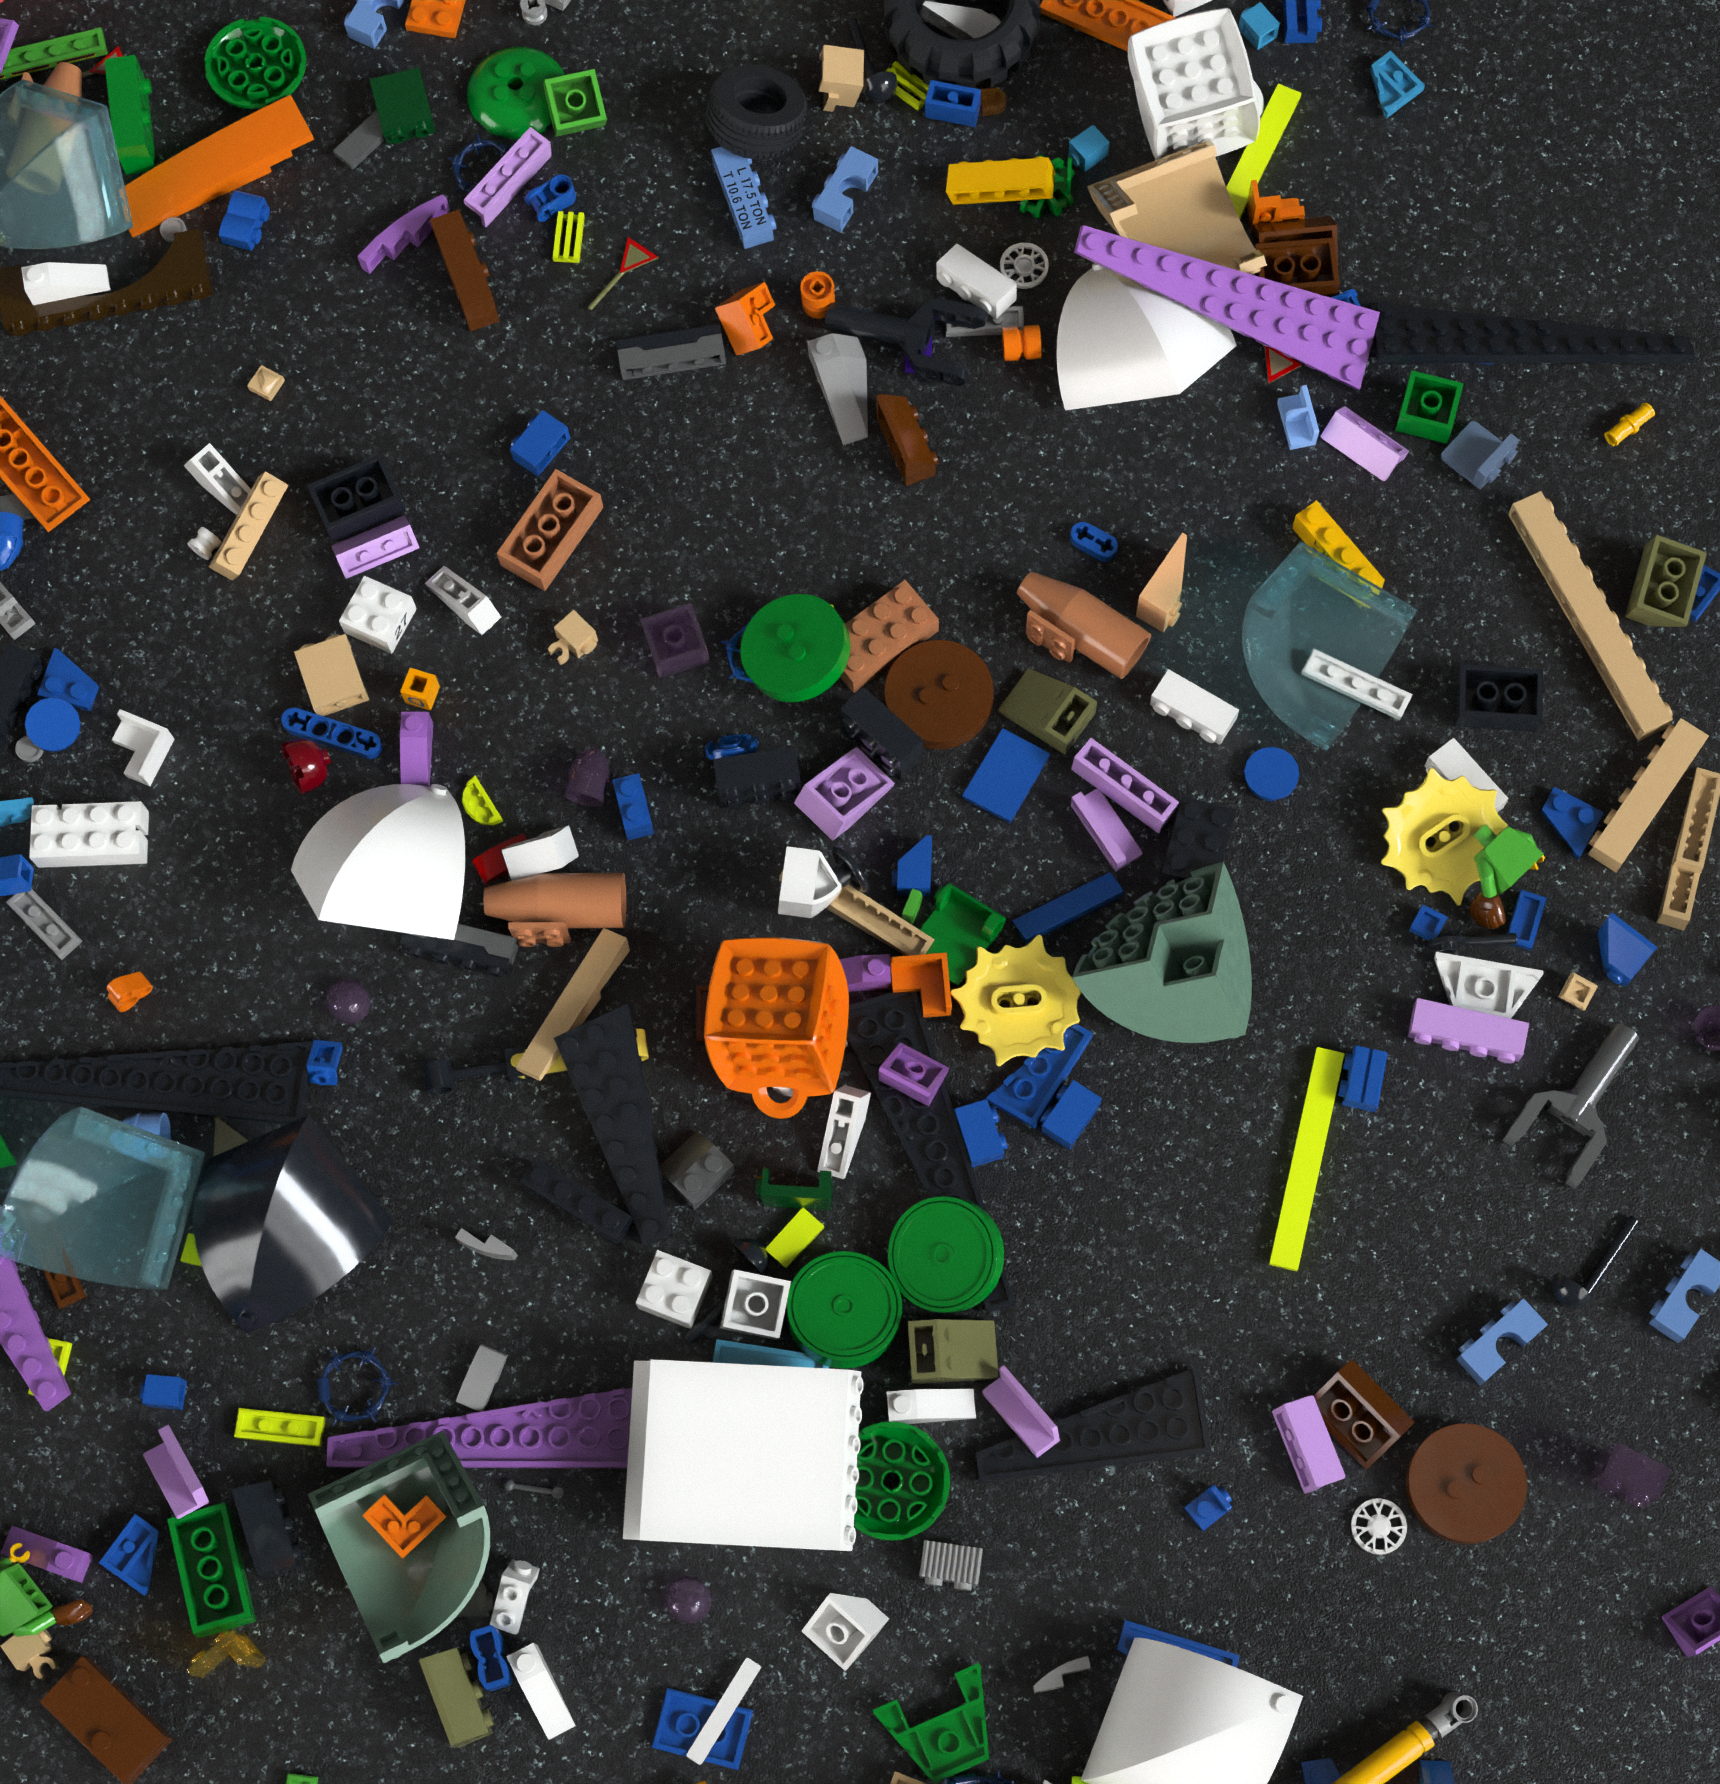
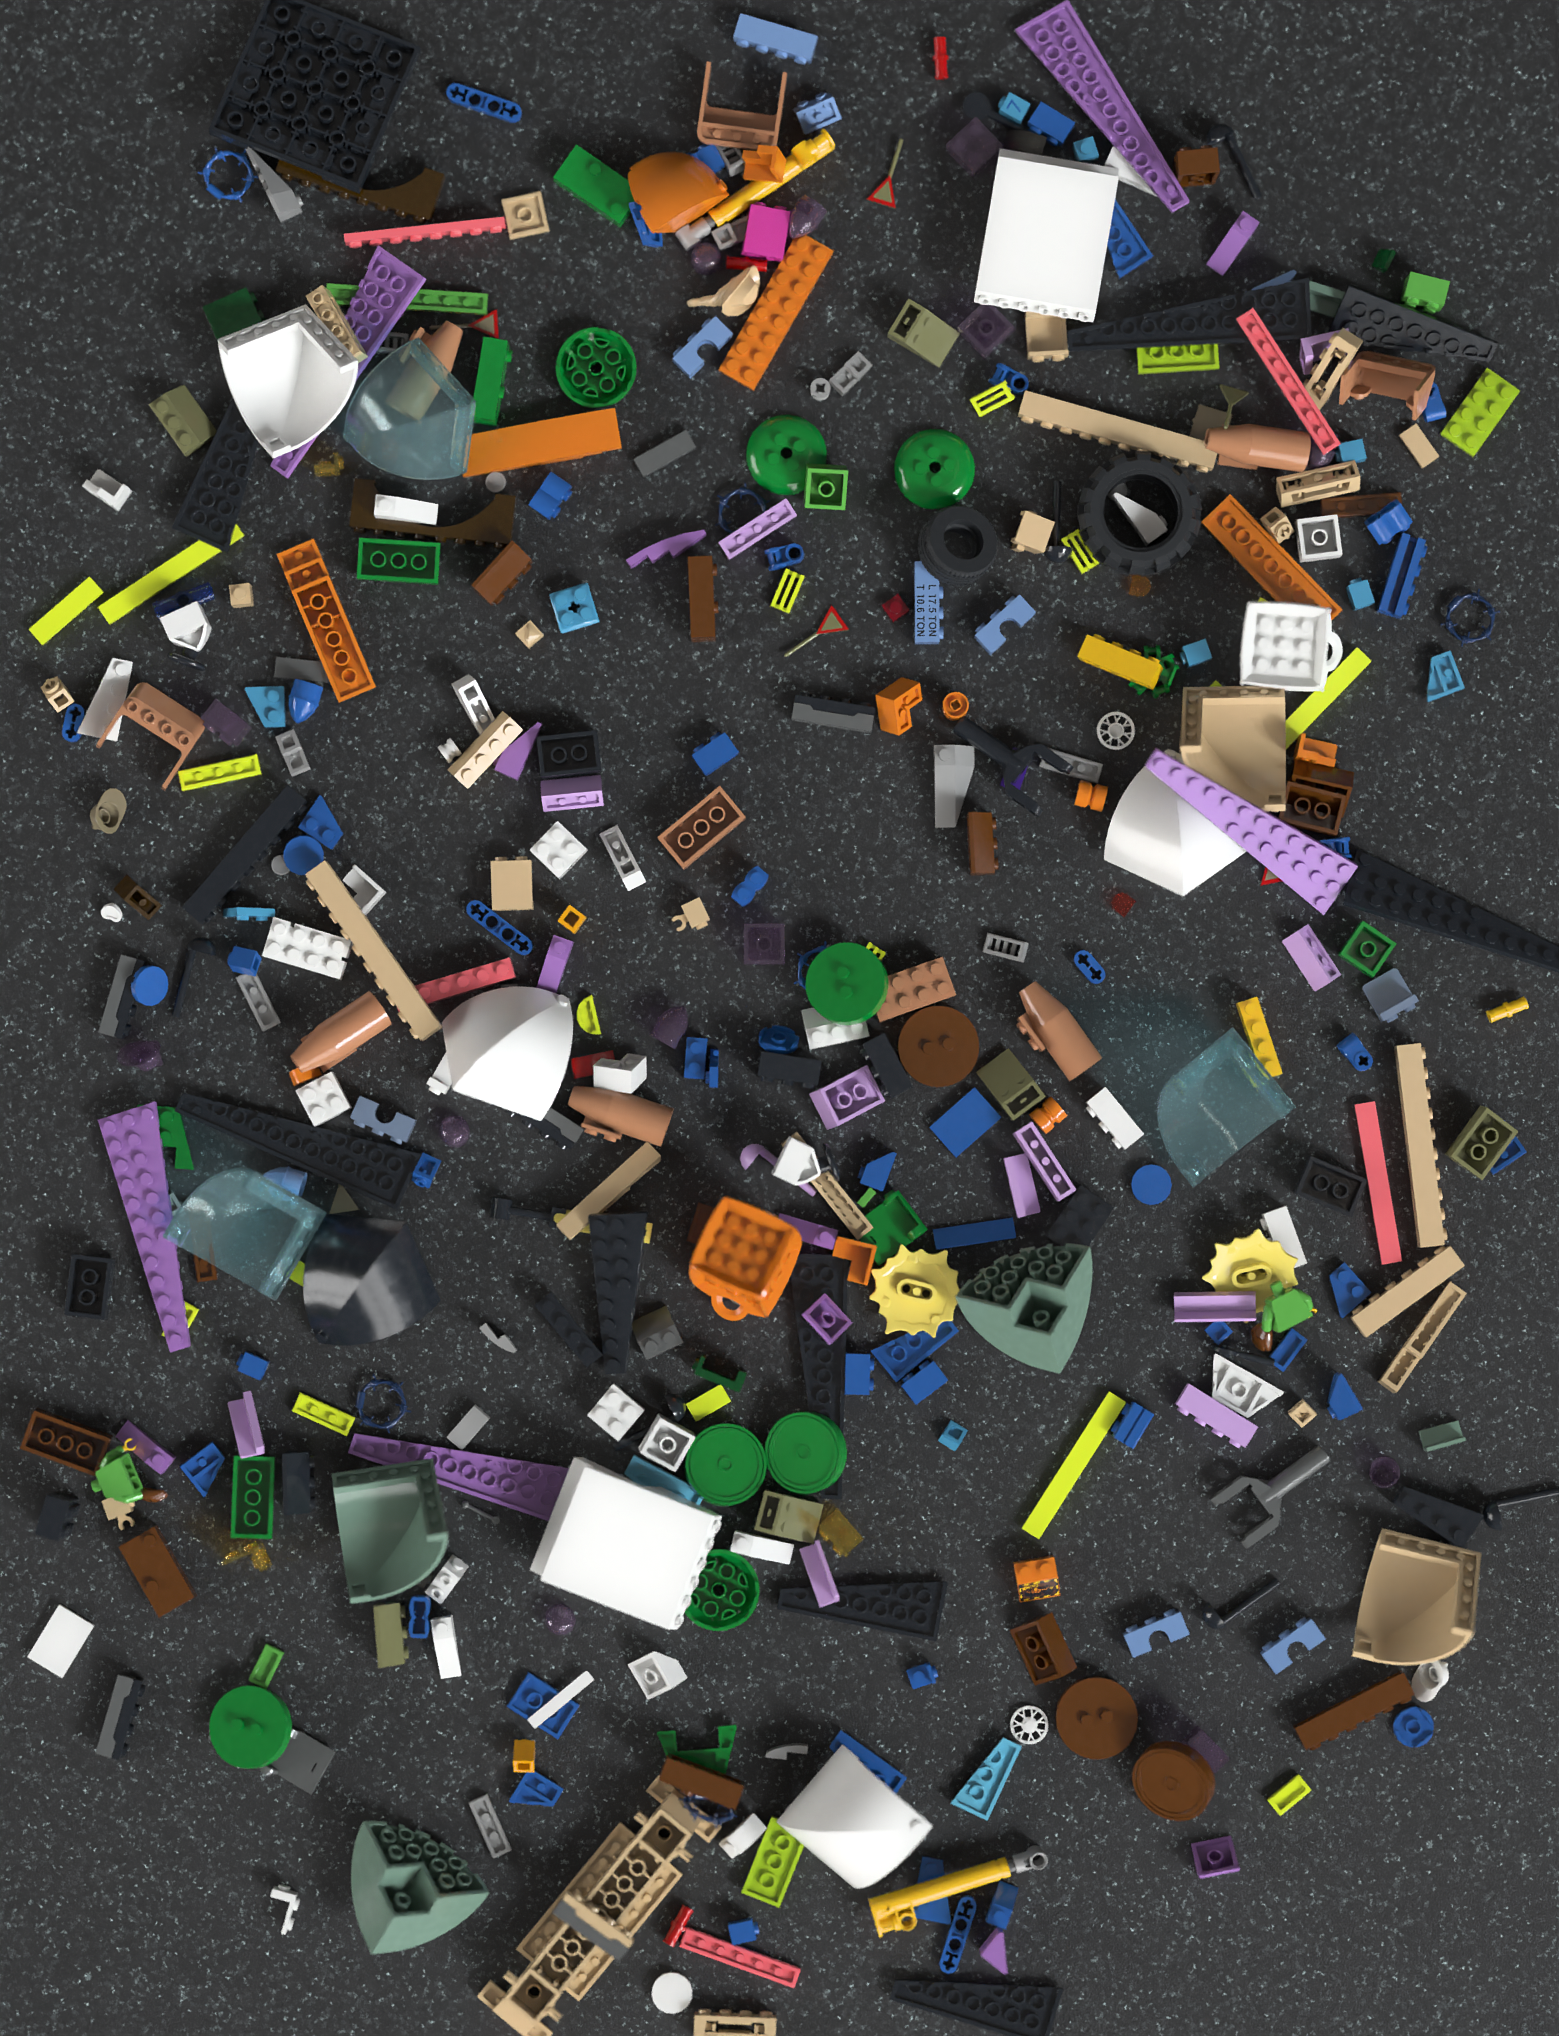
camera: 15 degrees right, 15 degrees up
(76, 346) = (398, 561): none -> green brick
(155, 925) = (341, 1034): none -> nougat piece
(162, 1013) = (323, 1099): none -> white brick
(173, 801) = (373, 950): none -> tan brick
(208, 319) = (502, 574): none -> reddish brown slope
(272, 1019) = (366, 1114): none -> sand blue arch
(290, 521) = (516, 754): none -> medium lavender slope
(290, 818) = (466, 981): none -> coral brick
(306, 763) = (475, 948): dark red cylinder -> none
(308, 349) = (585, 615): none -> dark azure brick
(312, 937) = (441, 1078): none -> white bracket
(402, 106) = (696, 440): dark green panel -> none
(402, 1530) = (388, 1518): orange panel -> none
(631, 584) = (745, 891): none -> blue brick
(661, 817) = (712, 1075): none -> blue wing
(691, 71) = (929, 488): none -> green brick
(706, 215) = (895, 608): none -> dark red plate
(746, 895) = (751, 1151): none -> lavender piece
(794, 721) = (825, 1033): none -> white slope
(843, 1129) = (766, 1340): white slope -> none
(950, 1564) = (739, 1656): light grey brick -> none
(953, 103) = (1108, 583): blue brick -> none
(957, 1754) = (701, 1781): none -> reddish brown brick
(976, 281) = (1074, 735): white brick -> none
(982, 560) = (1022, 951): none -> light grey slope
(1030, 1350) = (840, 1532): none -> clear yellow bracket
(1107, 456) = (1122, 904): none -> clear red tile
(1110, 726) = (1048, 1115): none -> orange wheel
(1133, 1174) = (952, 1435): none -> dark azure slope
(1161, 597) = (1124, 1028): light nougat slope -> none
(1299, 419) = (1270, 923): light blue panel -> none
(1308, 1444) = (1002, 1657): lavender panel -> none
(1315, 1322) = (1036, 1578): none -> orange slope
(1351, 1628) = (986, 1783): none -> medium azure wing
(1356, 684) = (1235, 1140): white tile -> none
(1411, 891) = (1214, 1306): none -> lavender panel
(1463, 532) = (1352, 1049): none -> blue piece
(1557, 679) = (1378, 1182): none -> coral tile
(1606, 1529) = (1173, 1780): none -> reddish brown brick

